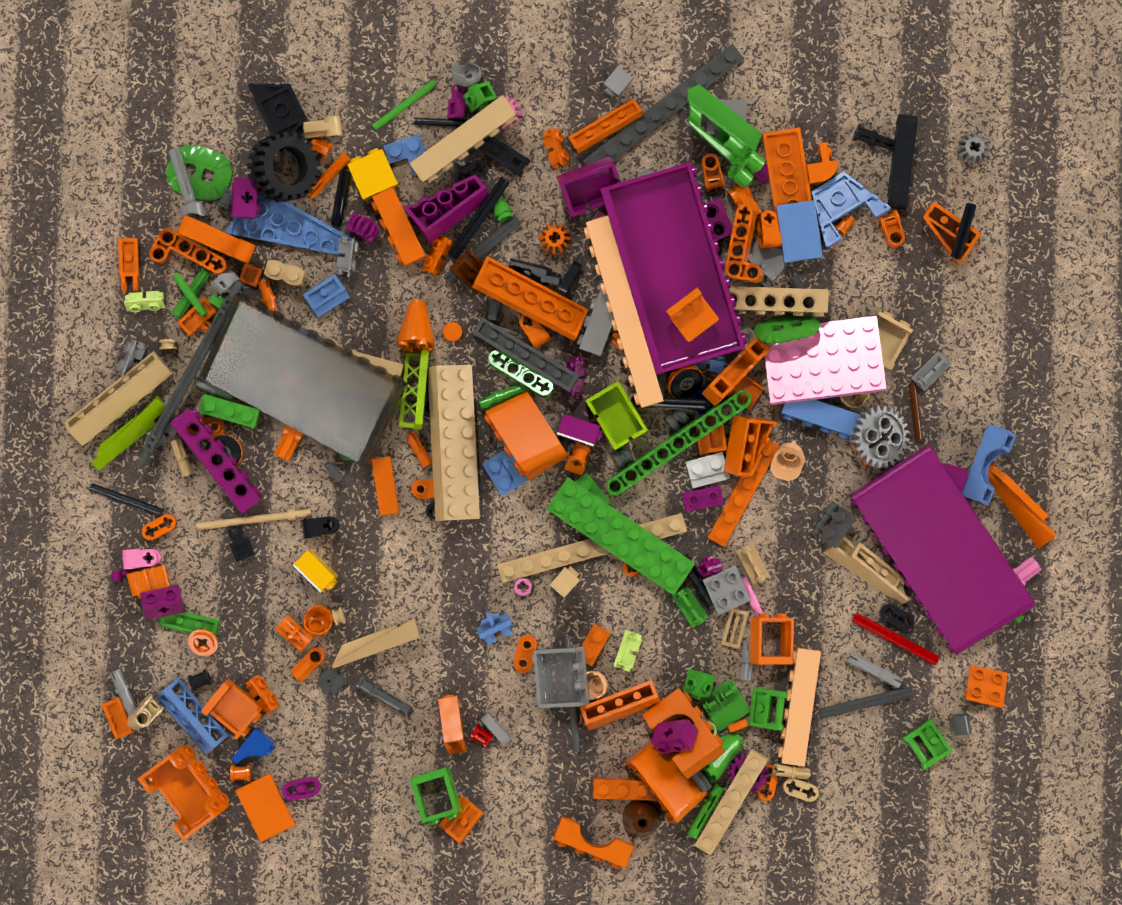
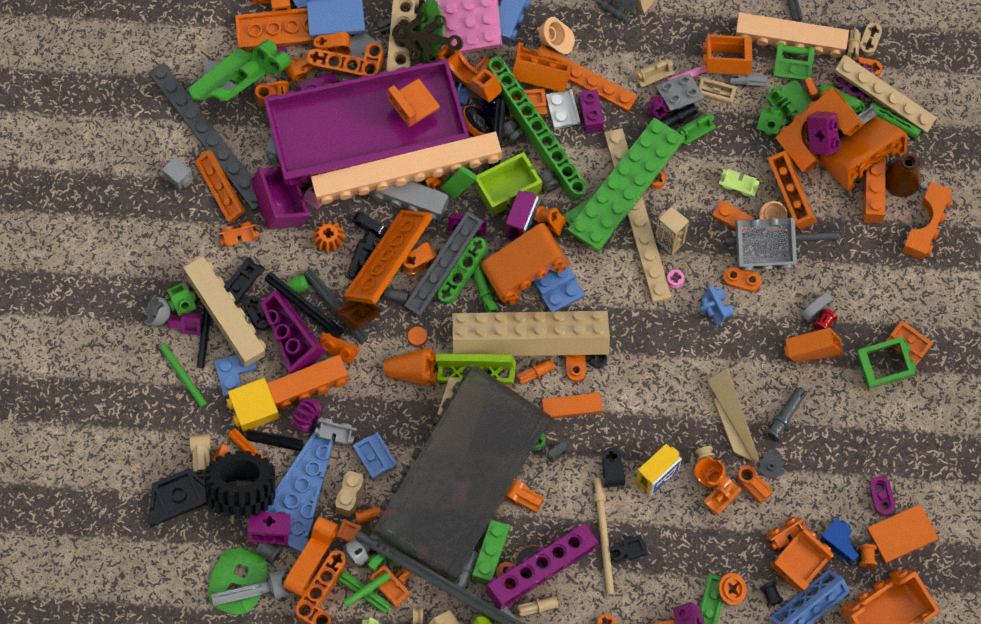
camera: 90 degrees left, 20 degrees down
(614, 365) = (458, 182): none -> bright green tile
(768, 323) = (424, 37): none -> dark brown plant

